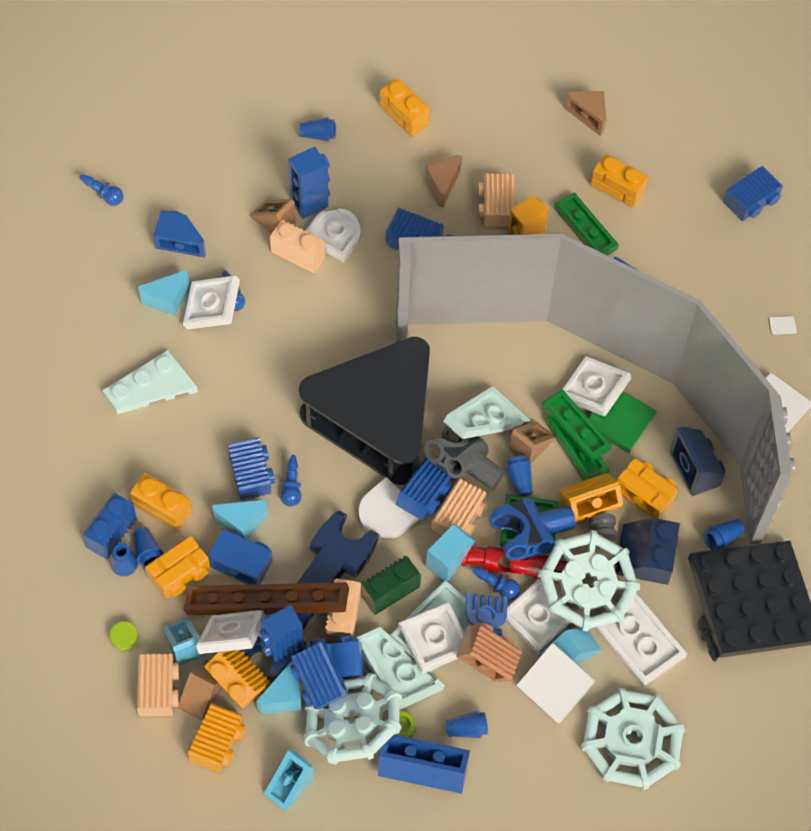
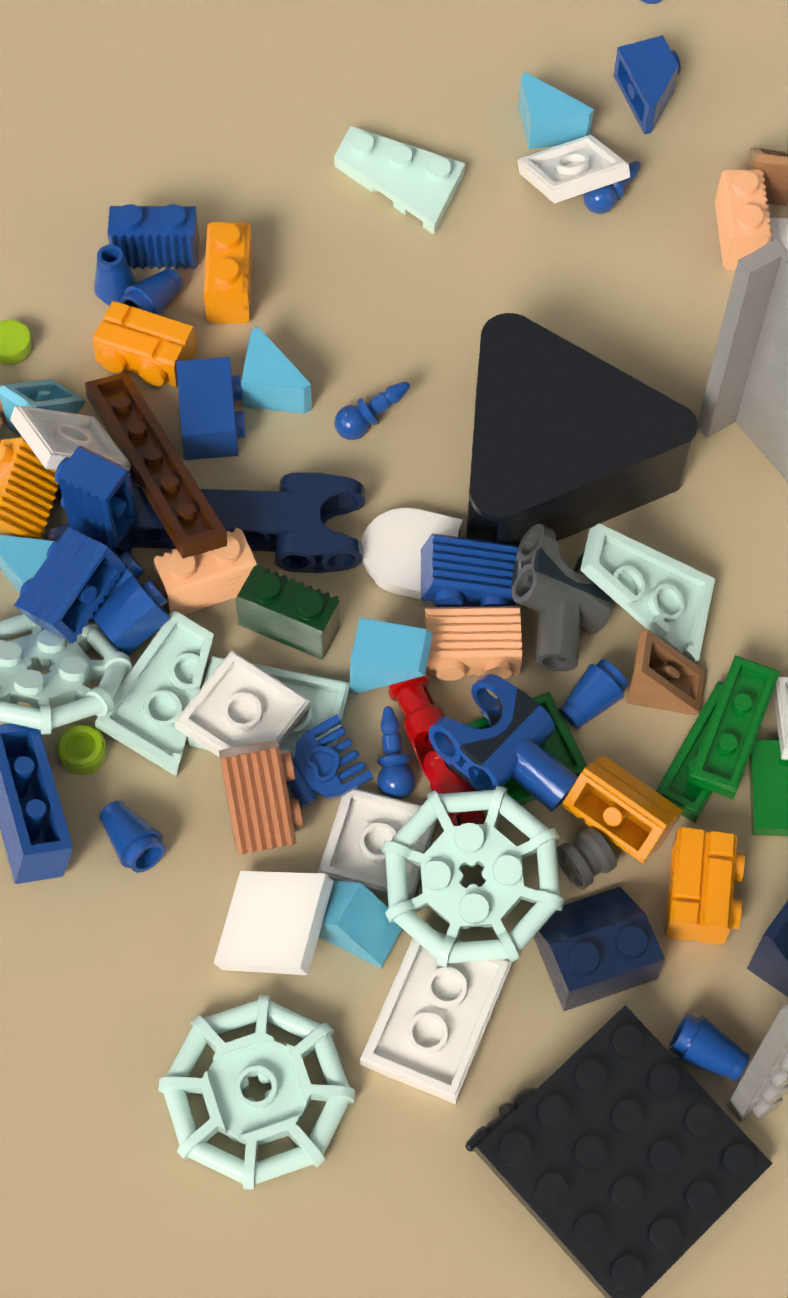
camera: 60 degrees right, 0 degrees up
(250, 468) = (353, 347): blue brick -> none

